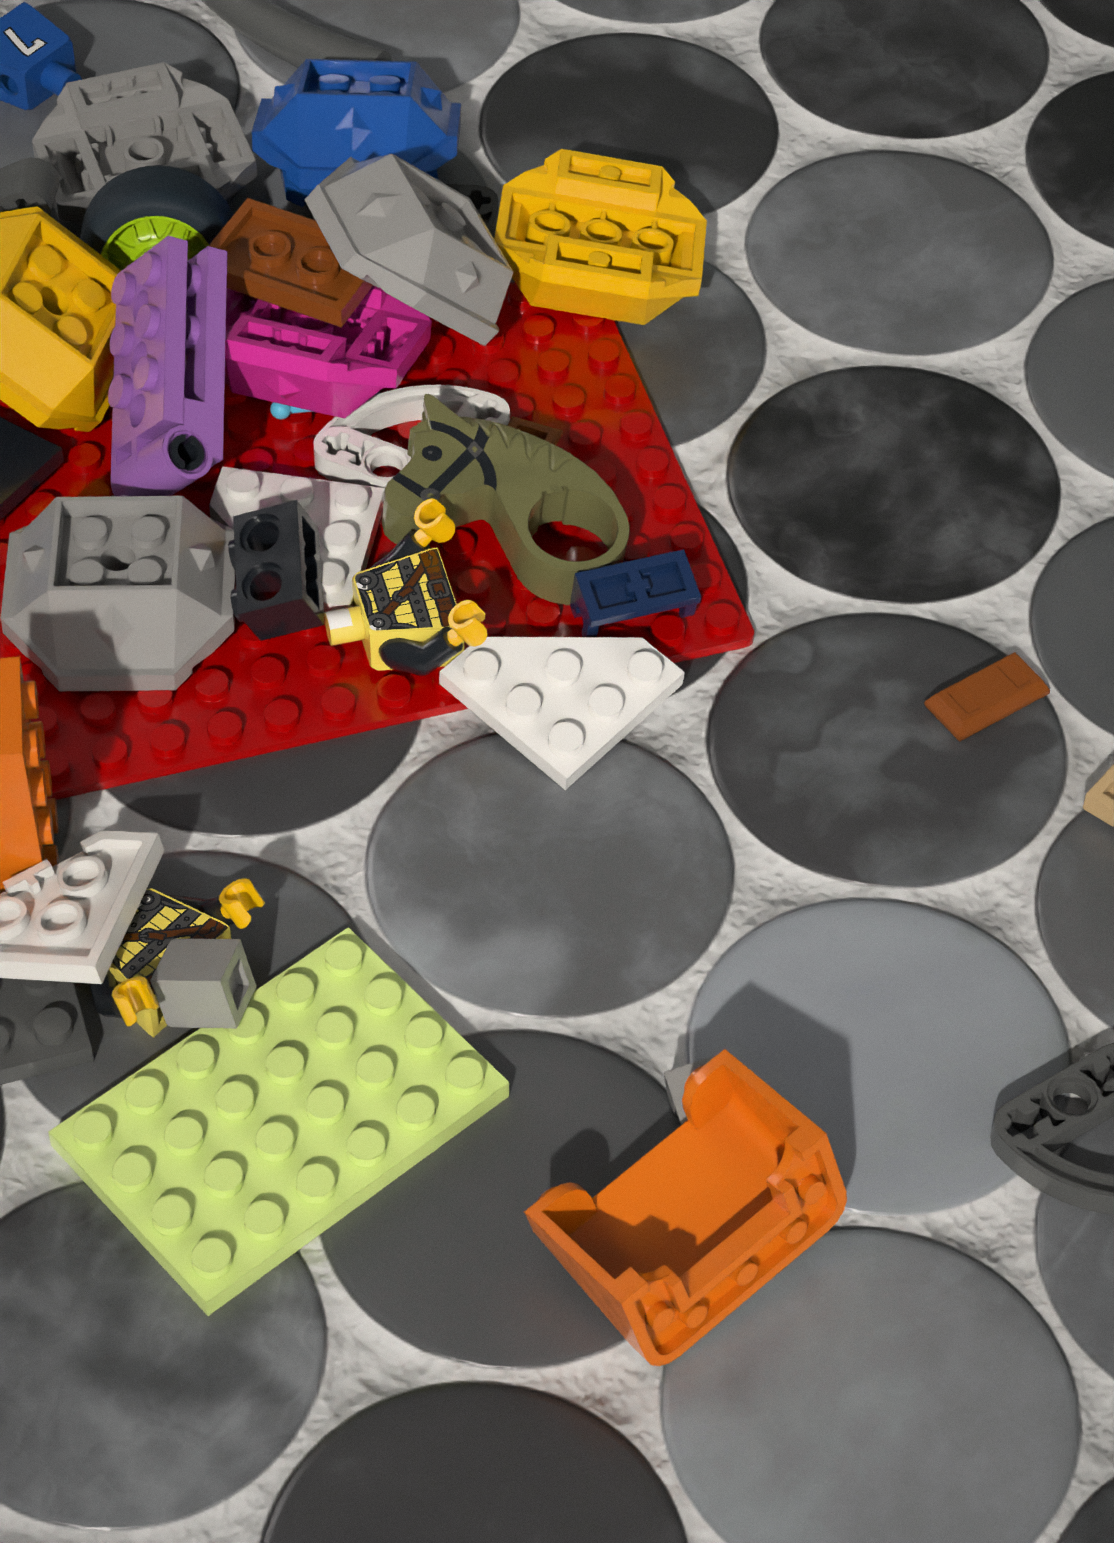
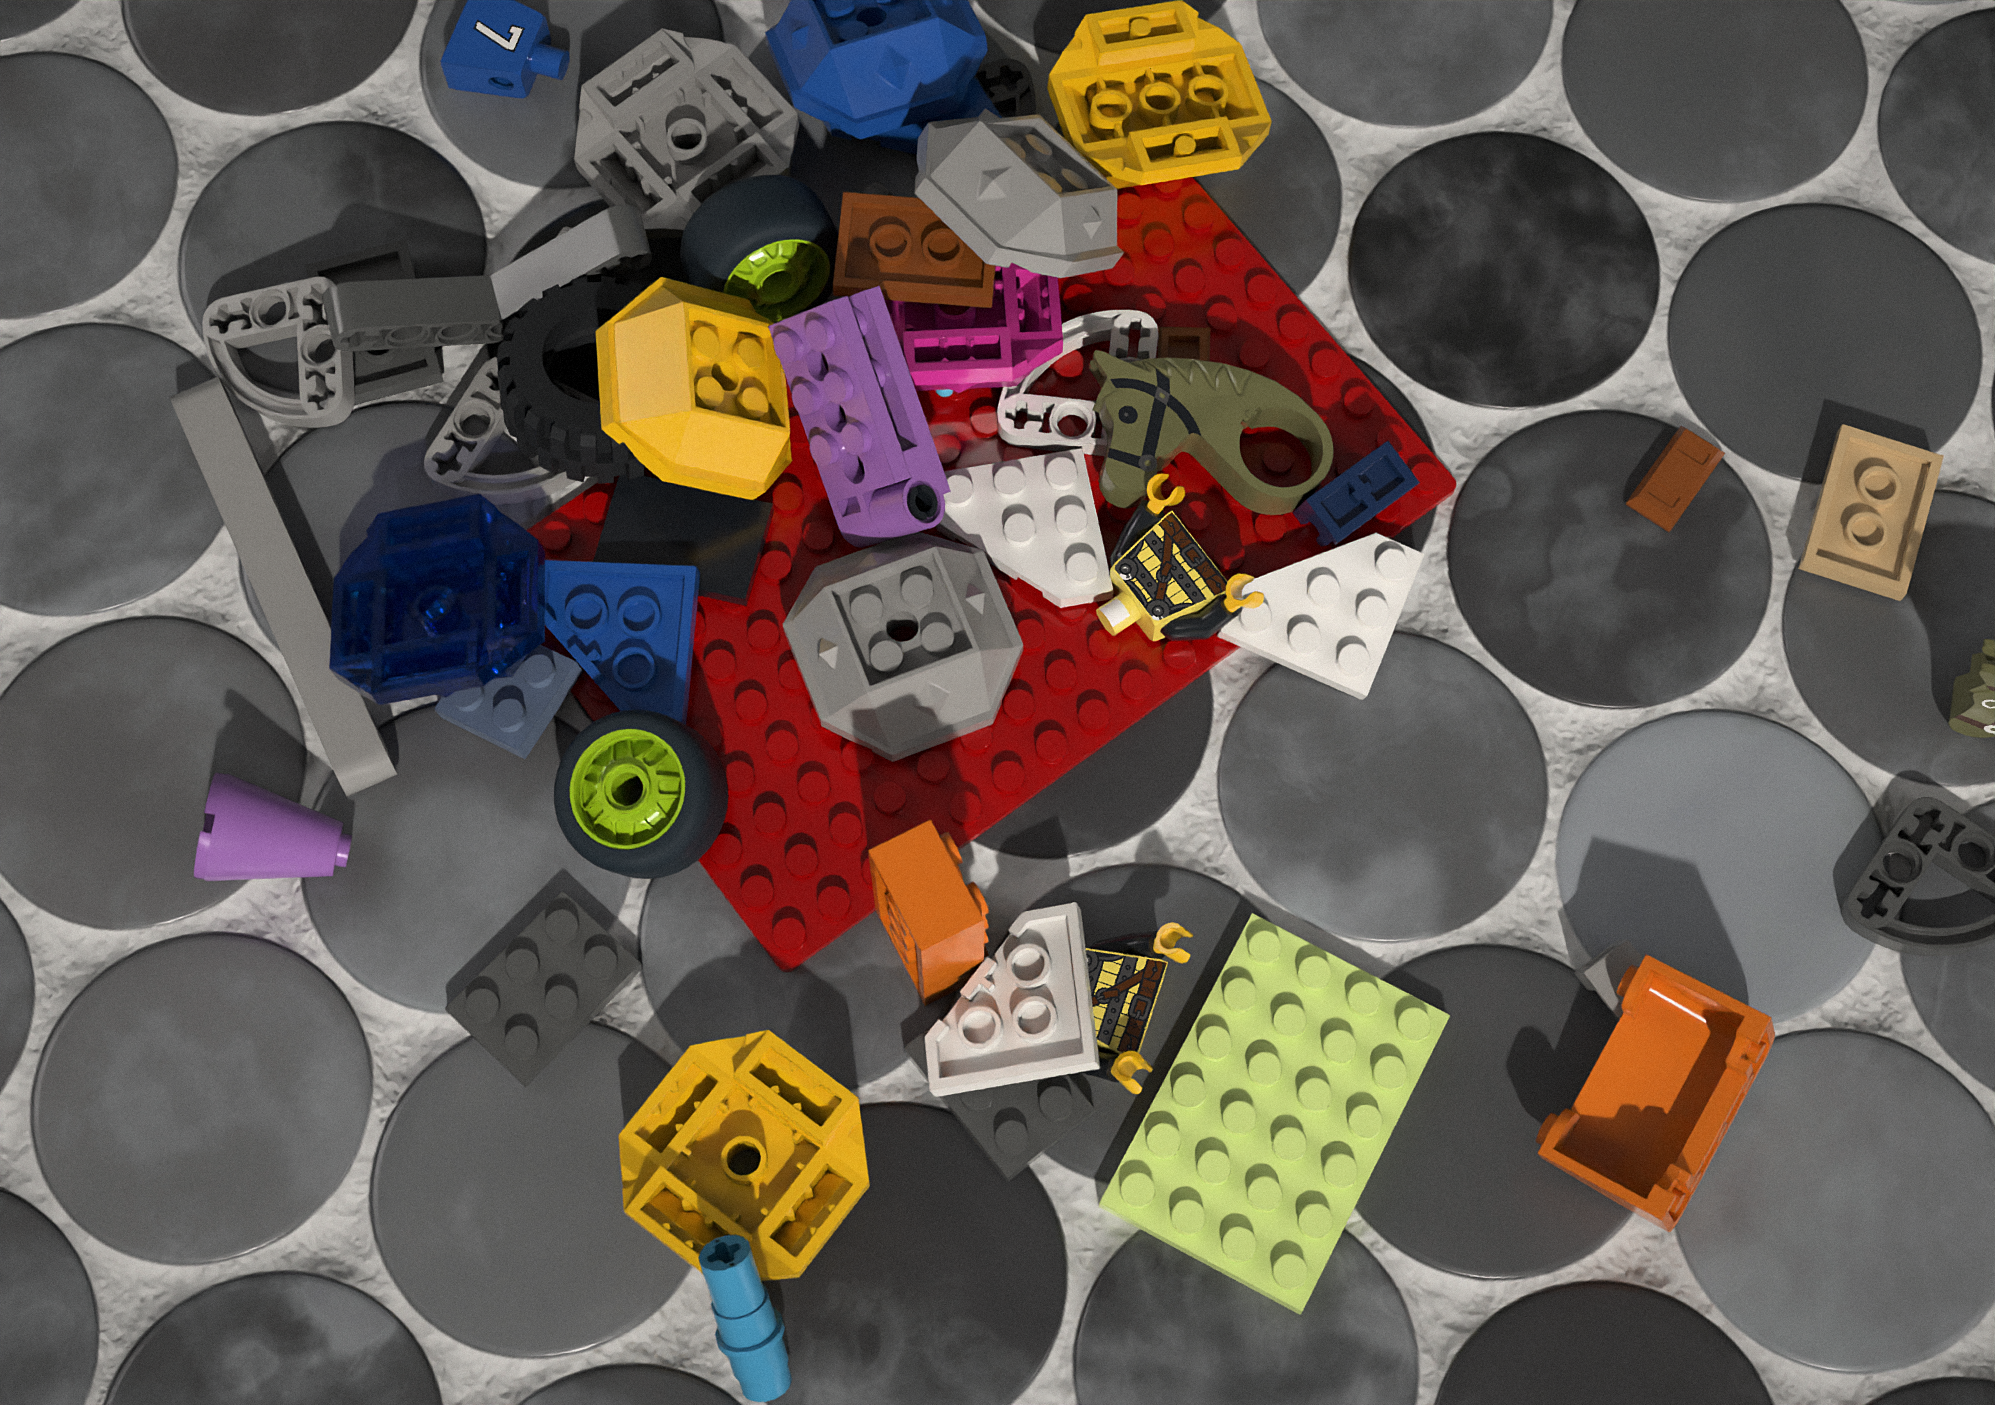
camera: 20 degrees left, 20 degrees up
(203, 983) = (1171, 1024): light grey panel -> none
(277, 571) = (1055, 578): black brick -> none

